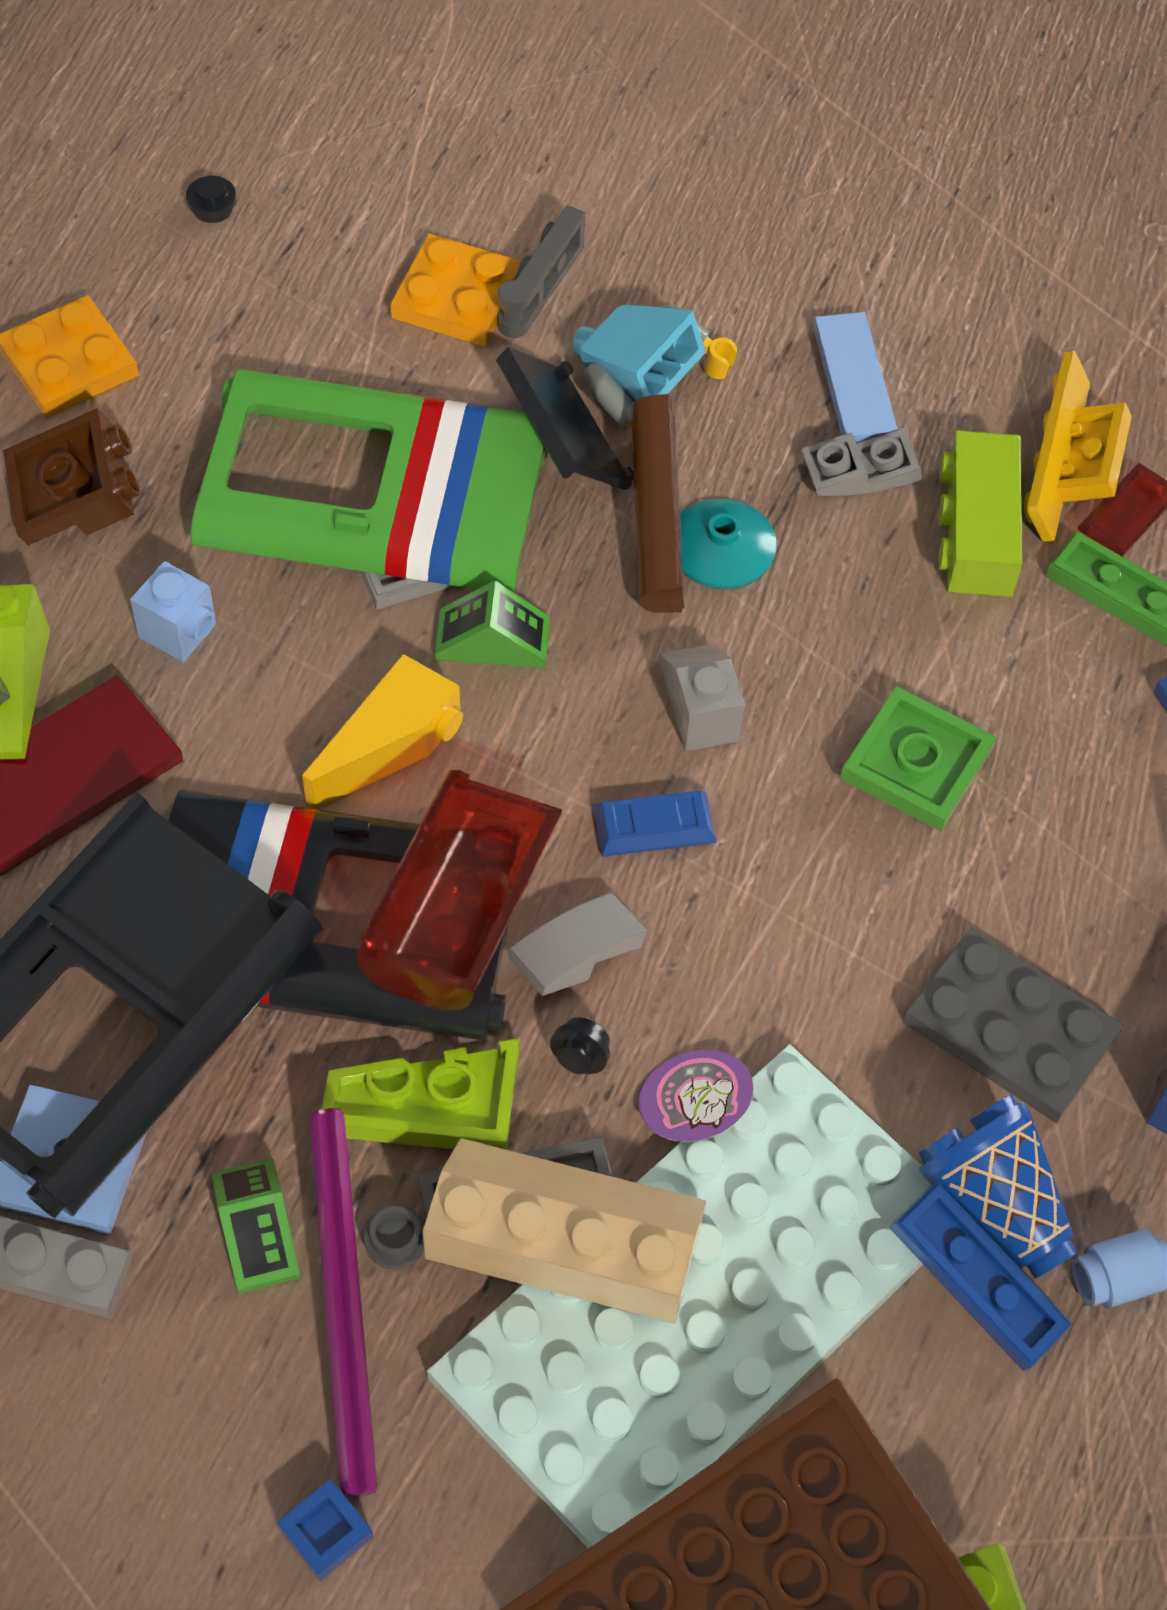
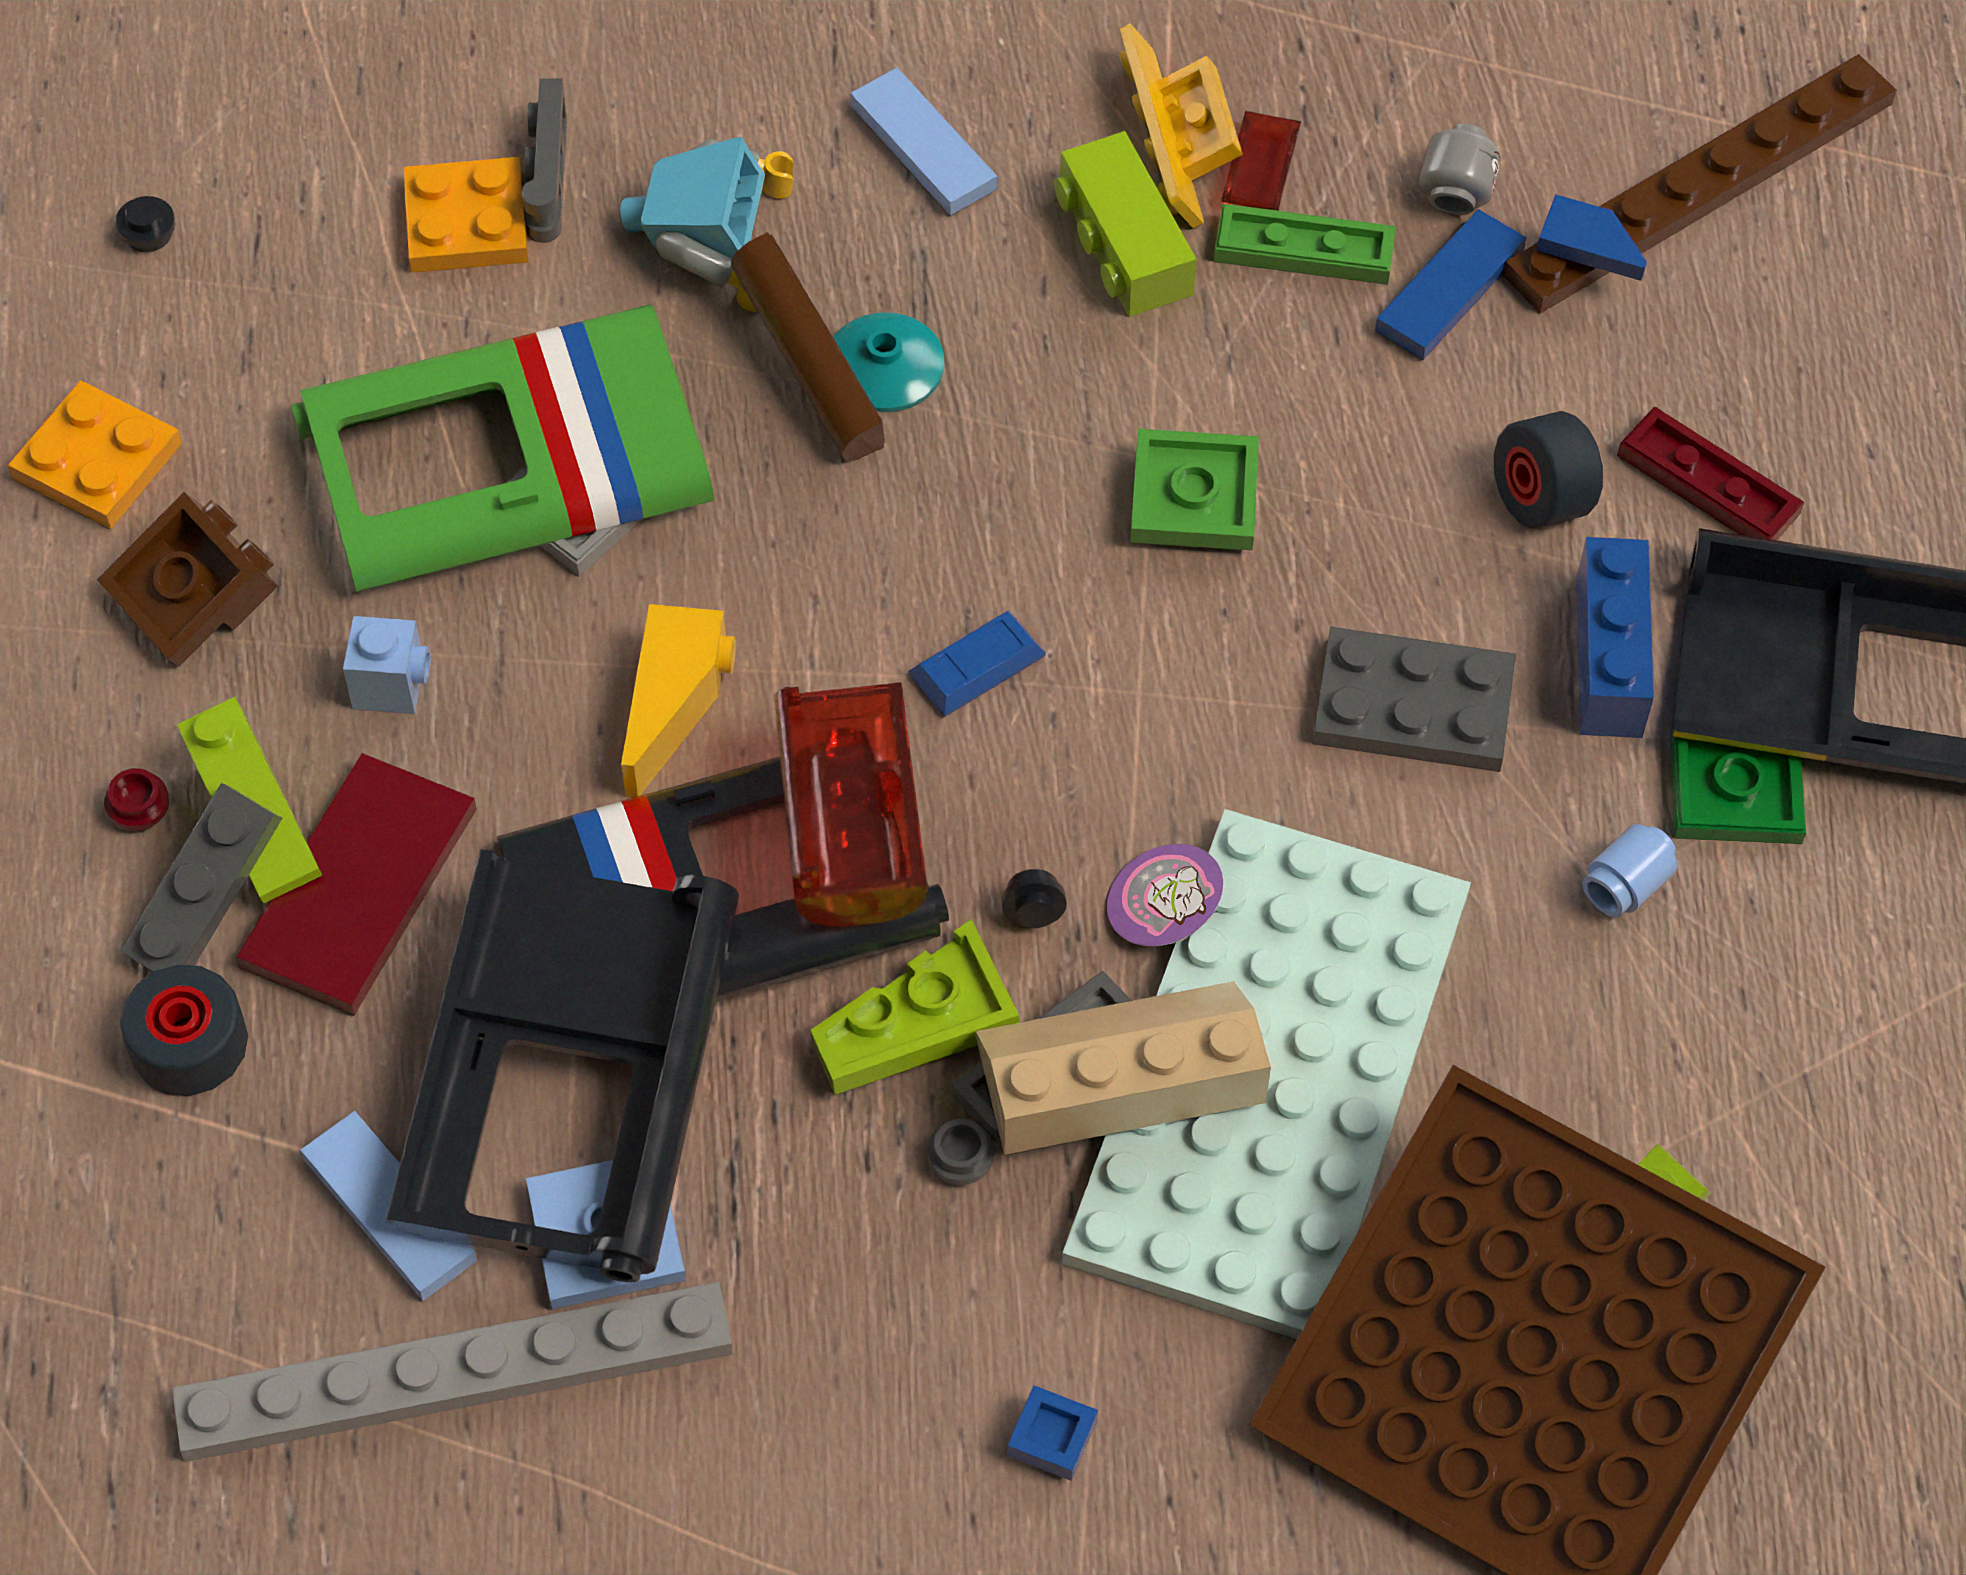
camera: 25 degrees left, 0 degrees up
(255, 1226) = (823, 1201): slope -> none
(343, 1304) = (950, 1226): magenta axle -> none
(493, 629) = (710, 544): bright green slope -> none
(562, 419) = (661, 302): black door -> none
(571, 944) = (972, 806): light grey slope -> none
(703, 696) = (957, 517): light grey slope -> none
(865, 467) = (988, 222): light grey slope -> none
(980, 1276) = (1509, 933): blue tile -> none
(1005, 1185) = (1489, 842): blue cone -> none

